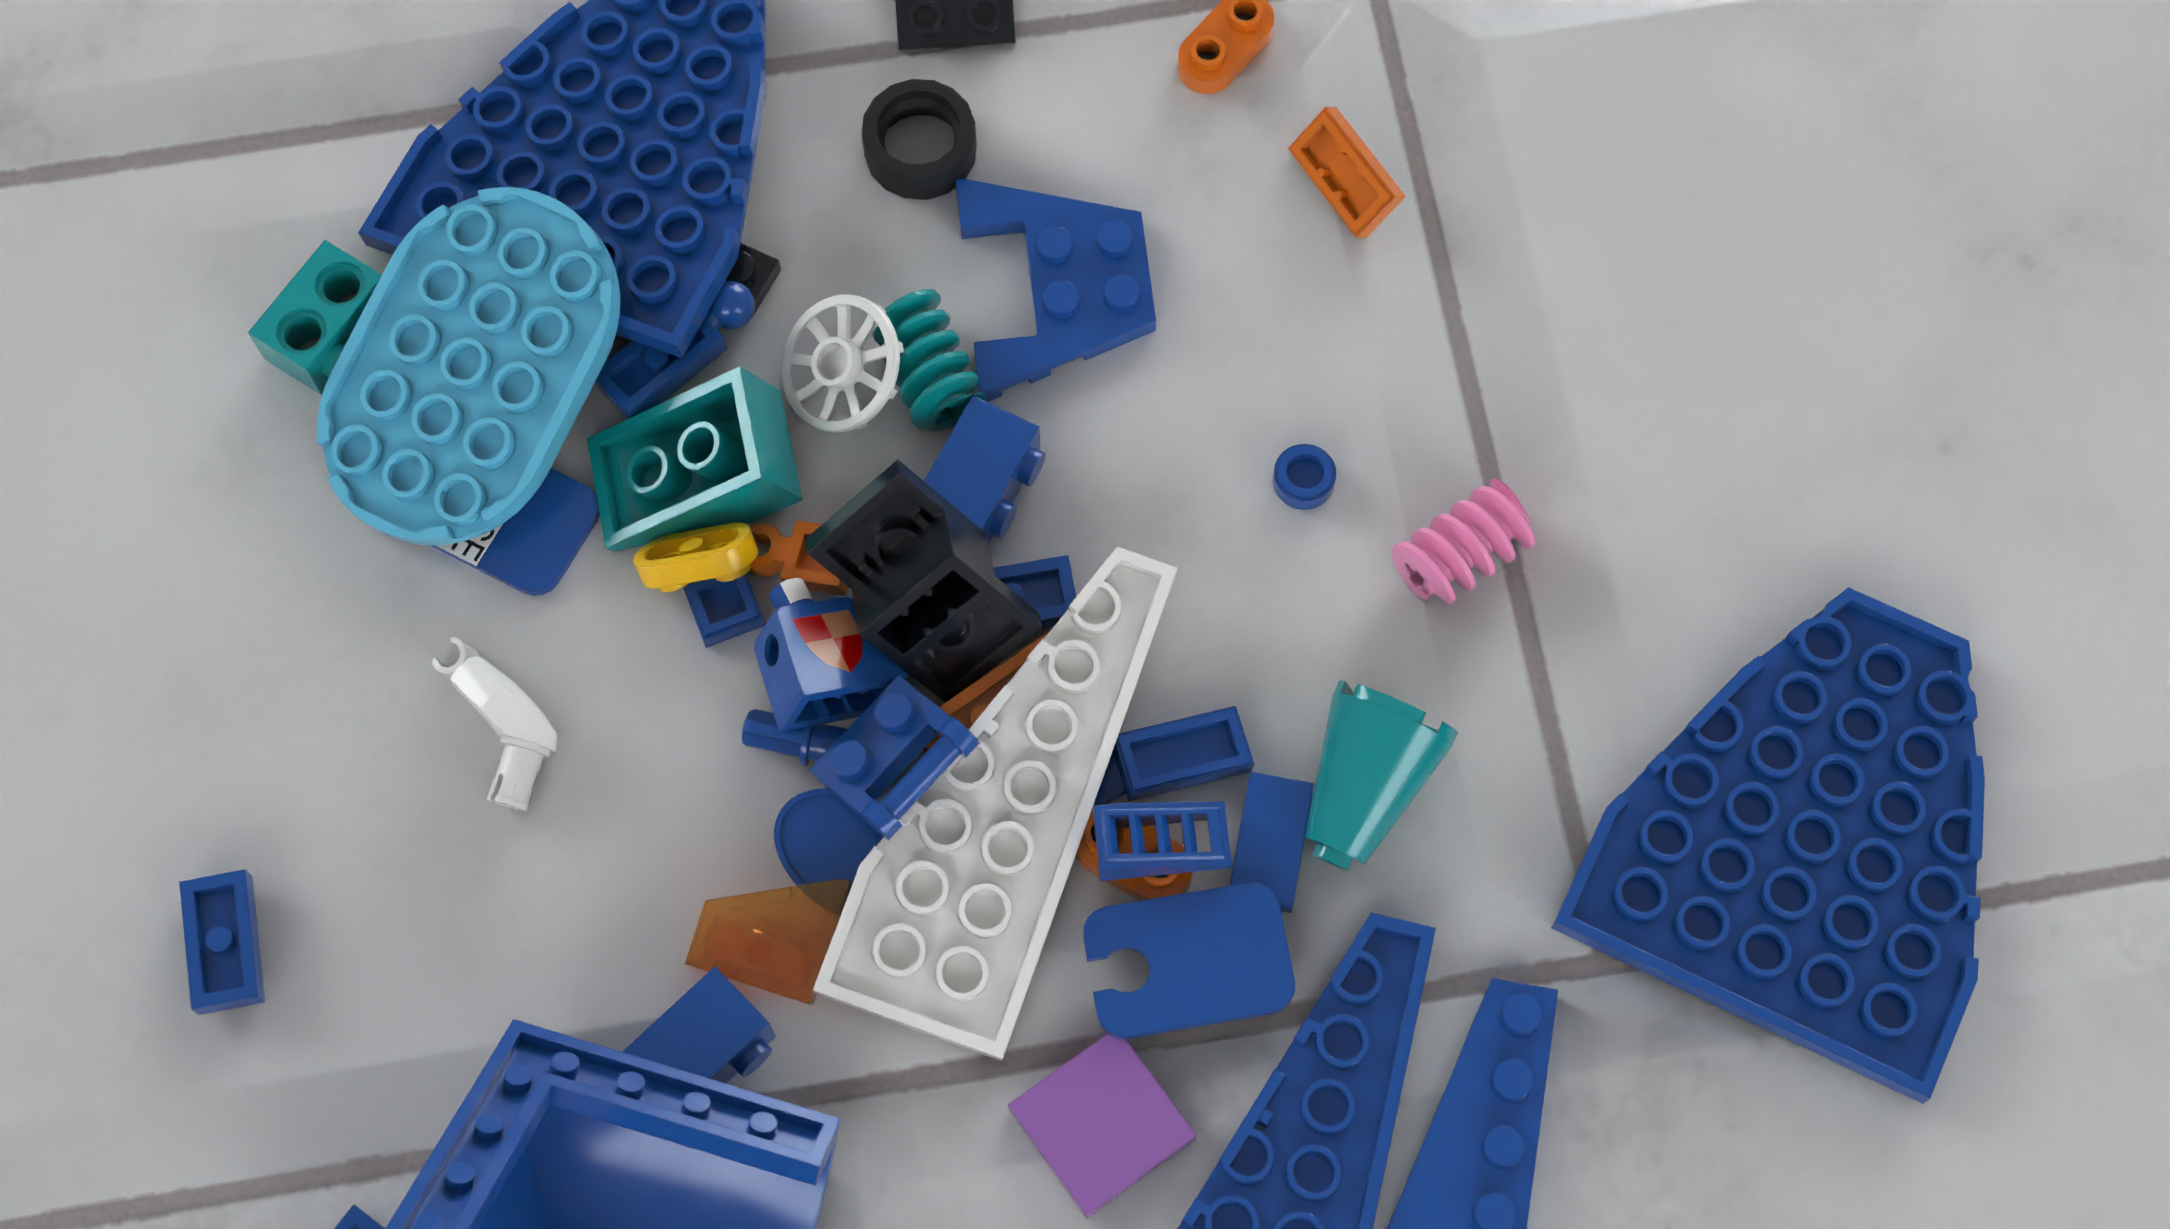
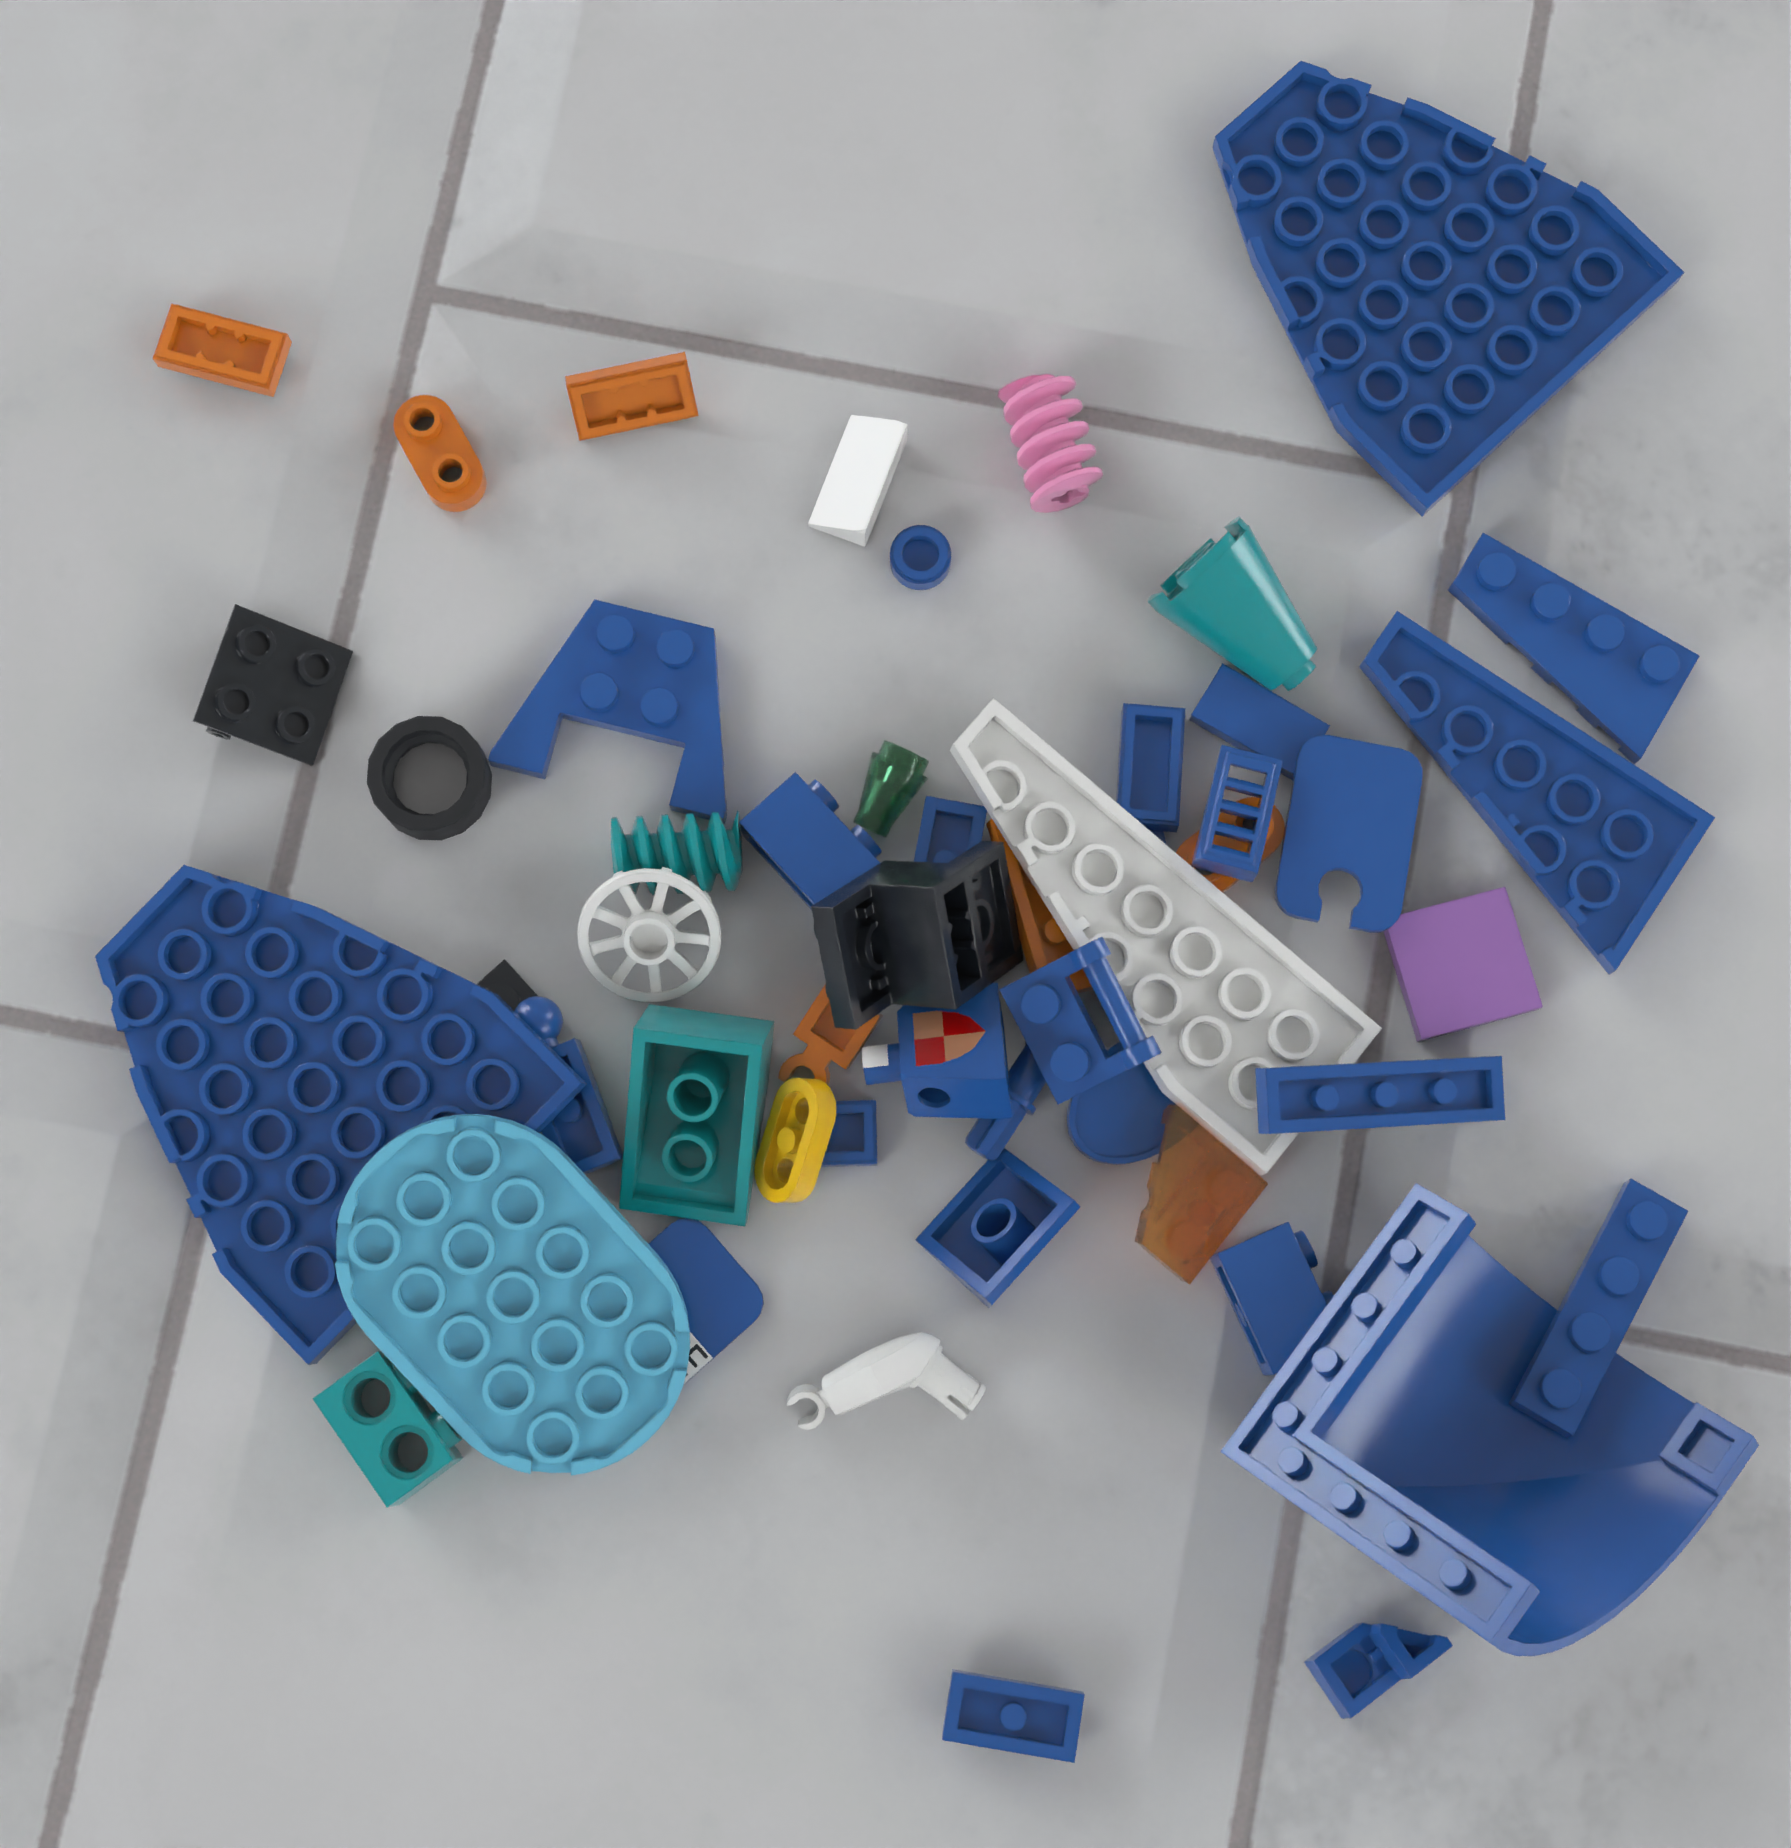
camera: 70 degrees left, 10 degrees up
(676, 769) = (997, 1225): none -> blue slope
(930, 1074) = (1379, 1094): none -> blue plate
(1066, 523) = (889, 787): none -> clear green cone
(1357, 397) = (859, 478): none -> white slope

